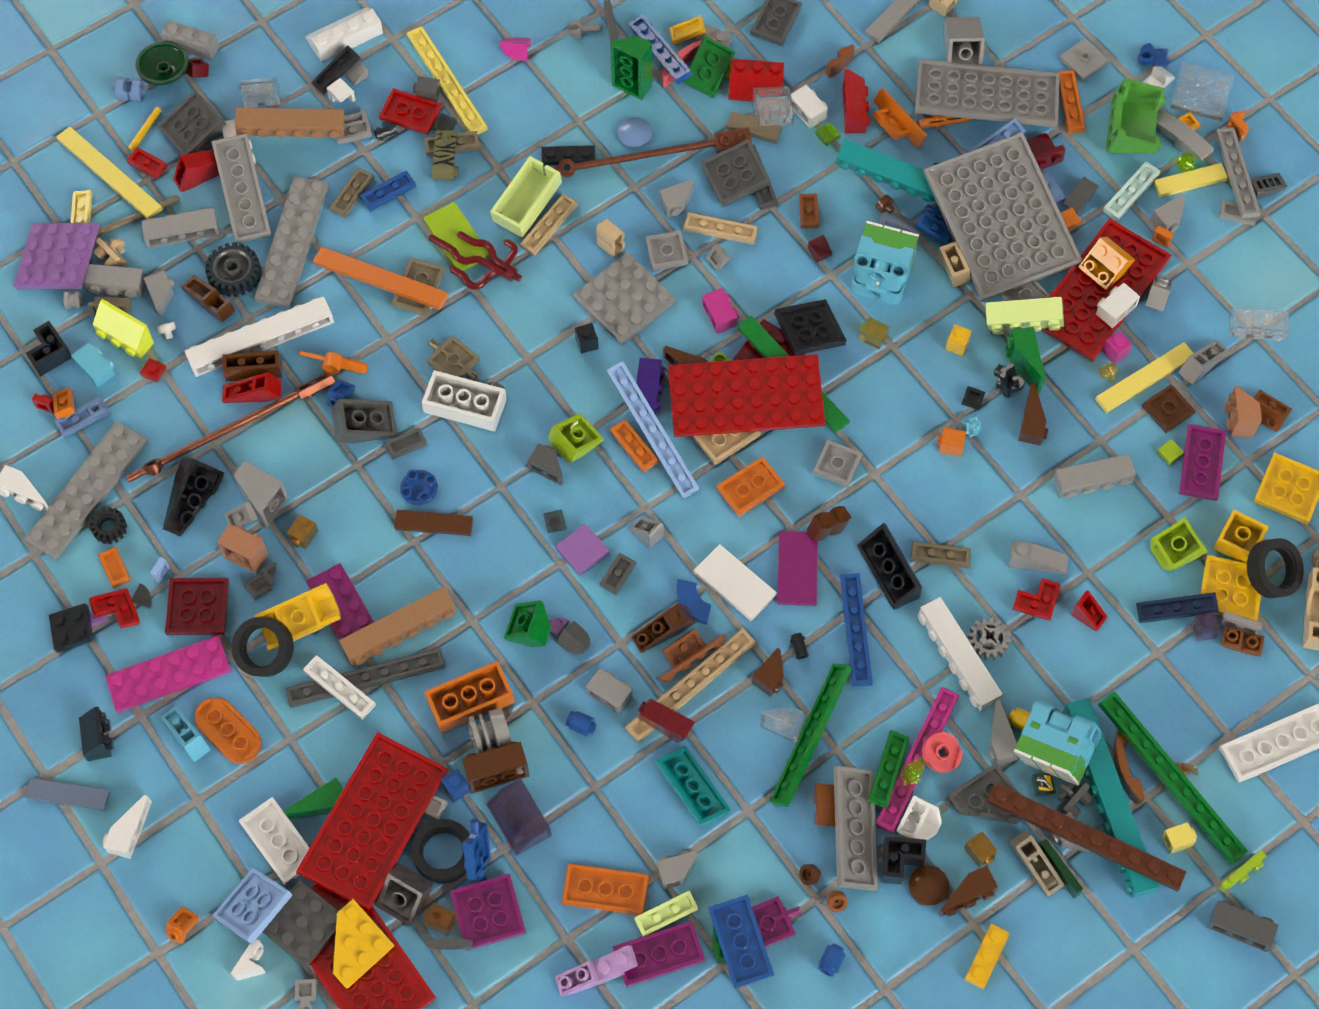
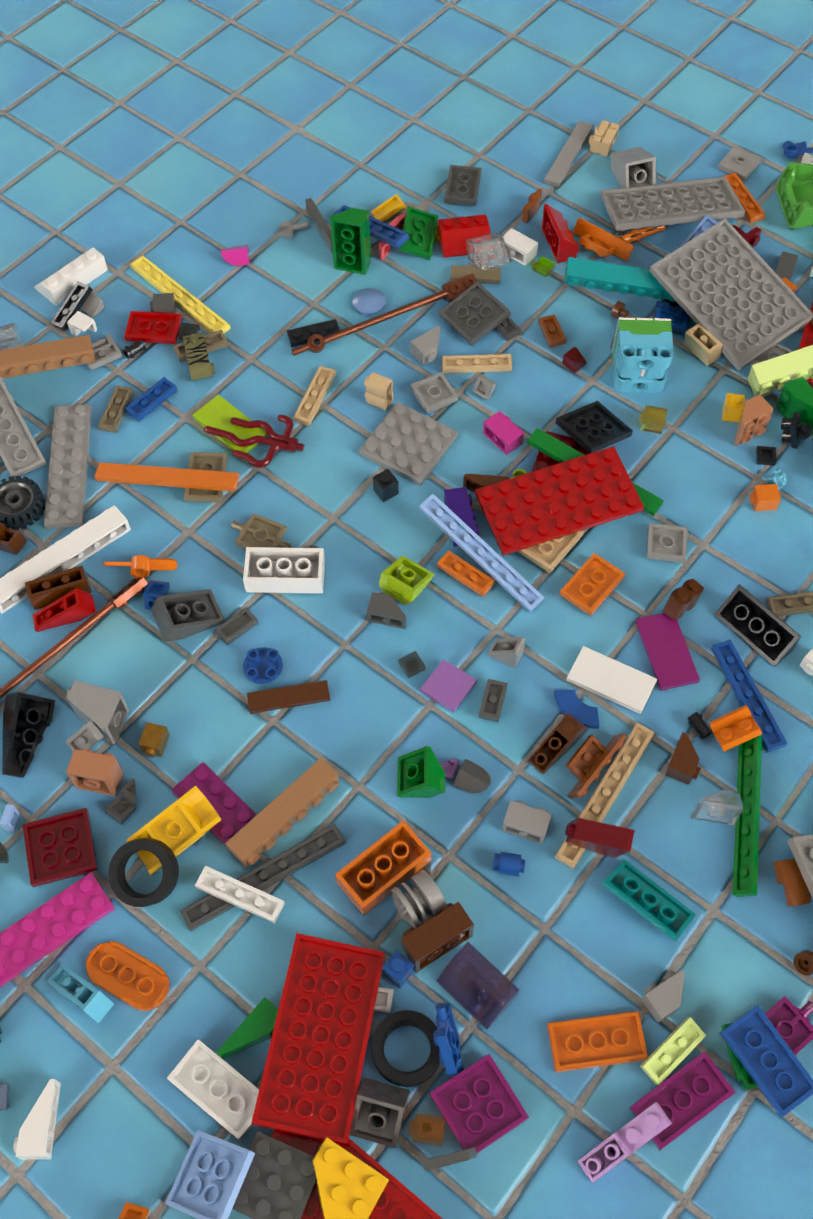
camera: 15 degrees left, 5 degrees down
(526, 197) = (286, 374): yellowish green piece -> none
(828, 656) = (735, 728): none -> orange bracket
(969, 359) = (753, 419): none -> nougat slope

